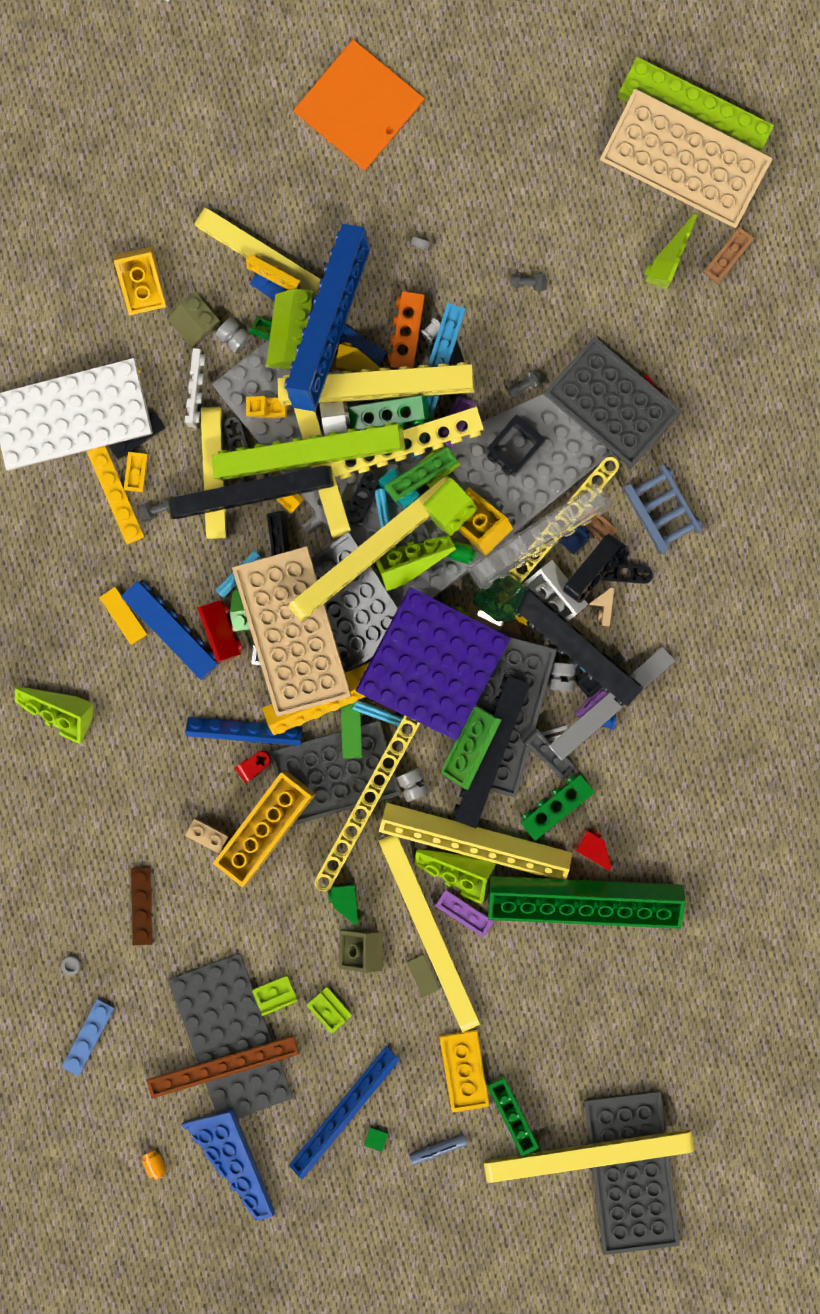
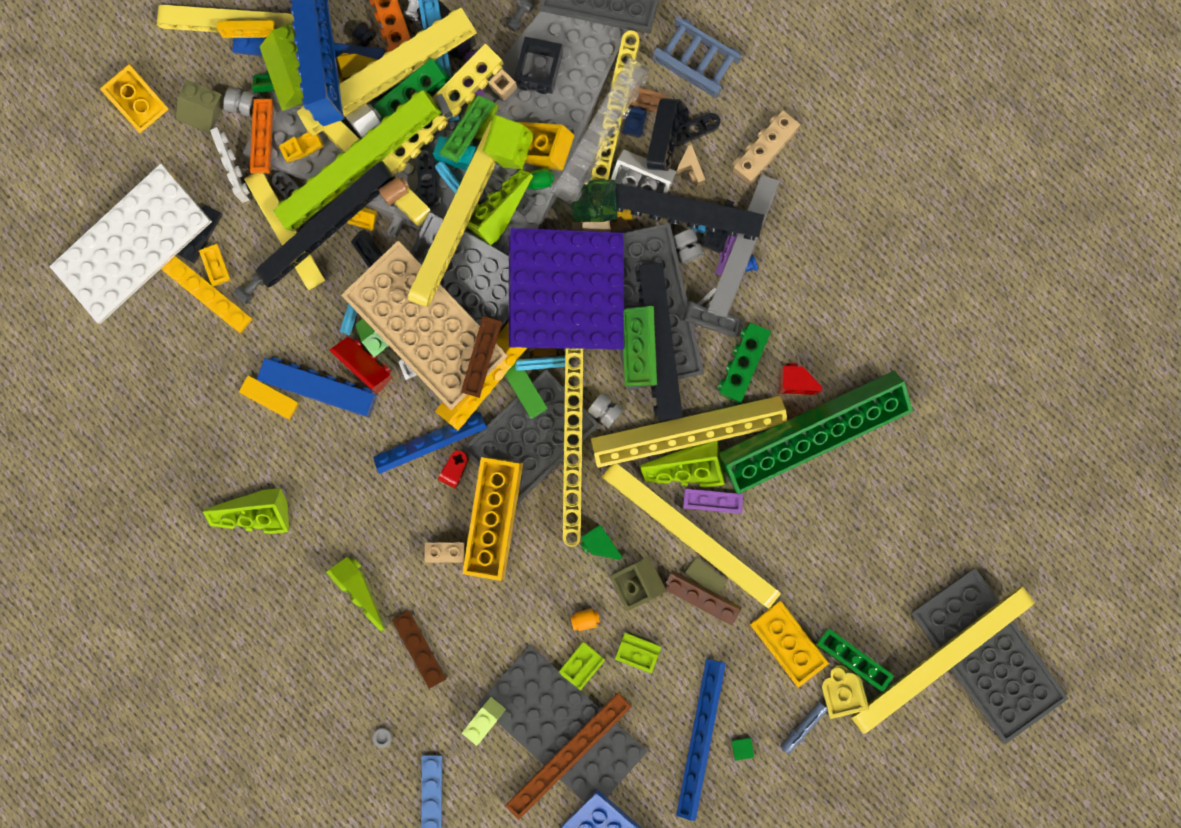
camera: 25 degrees left, 5 degrees down
(113, 815) = (351, 579): none -> lime wedge
(165, 999) = (483, 721): none -> yellowish green brick
(236, 378) = (261, 136): none -> orange tile
(298, 957) = (584, 619): none -> light orange brick
(326, 497) = (394, 190): none -> medium nougat brick
(326, 686) = (481, 356): none -> reddish brown plate
(375, 330) = (364, 34): none -> black wheel
(409, 444) = (443, 106): none -> dark grey tile
(410, 992) = (702, 598): none -> reddish brown plate
(473, 448) = (502, 84): none -> tan brick
(488, 1138) = (844, 693): none -> light yellow plate
(680, 624) = (765, 149): none -> tan brick

